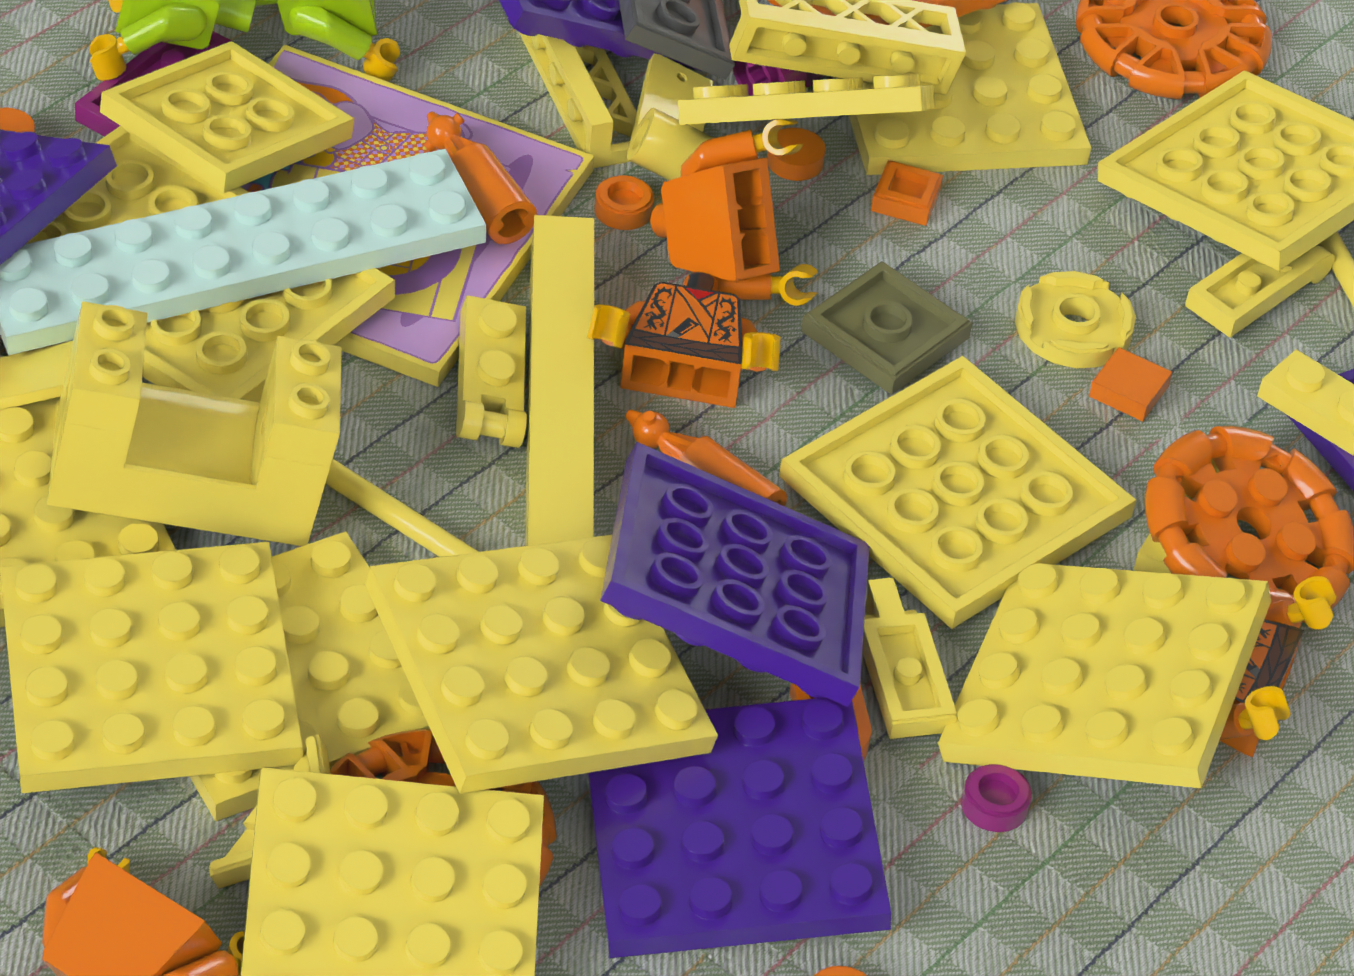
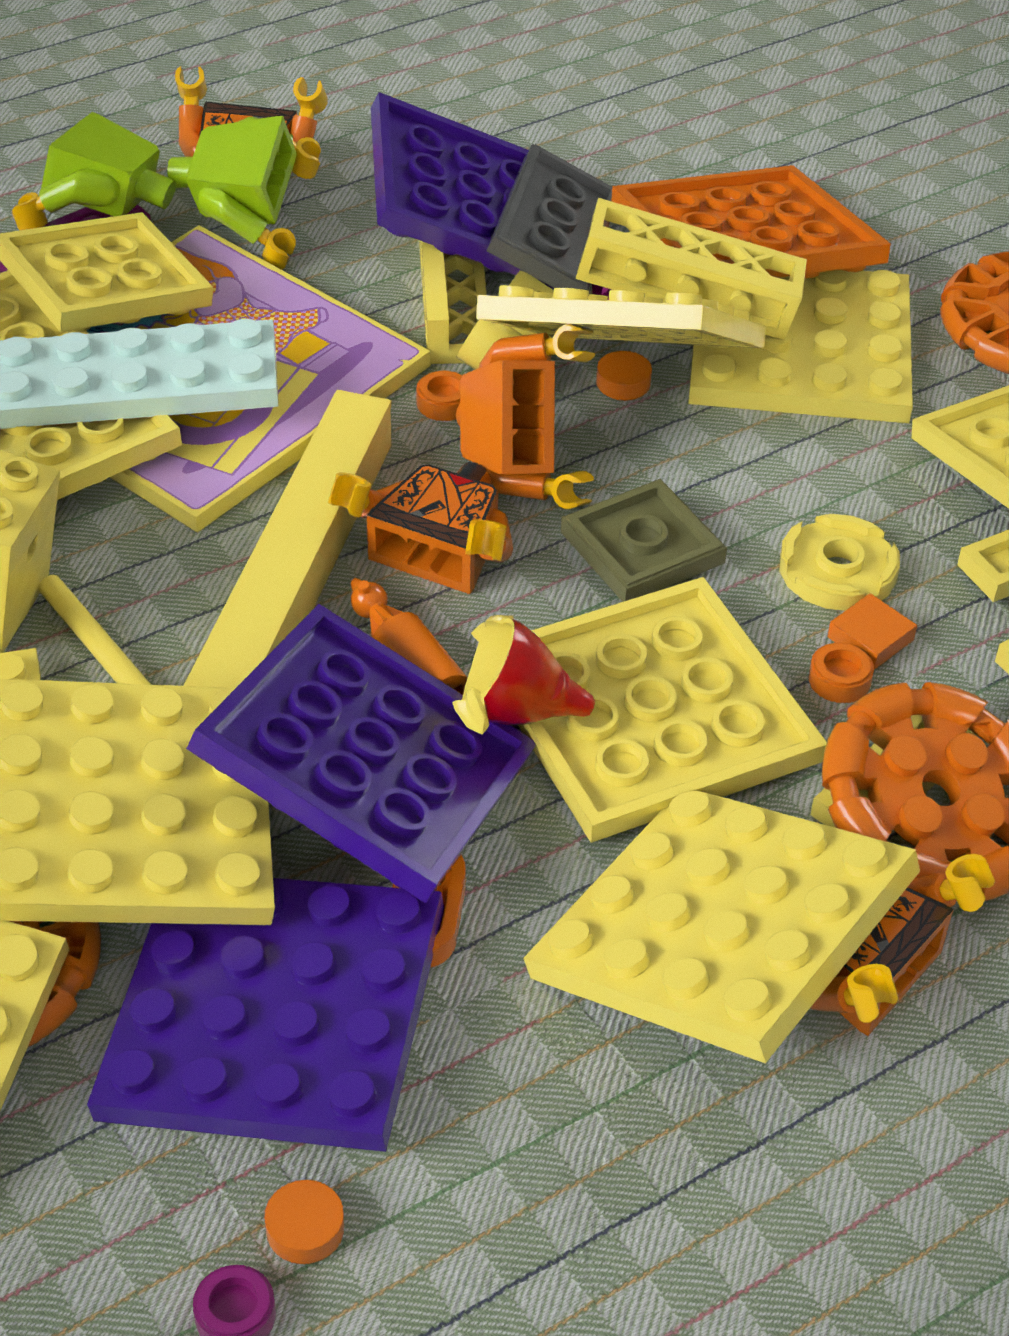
camera: 20 degrees right, 0 degrees up
(491, 371) = (238, 520): light yellow plate -> none
(493, 190) = (305, 355): orange wheel -> none
(842, 483) = (516, 679): none -> red hat
(904, 665) = (519, 872): light yellow hinge -> none
(907, 193) = (717, 423): orange tile -> none
(996, 798) = (566, 1028): magenta tile -> none
(1115, 429) = (841, 672): none -> orange tile

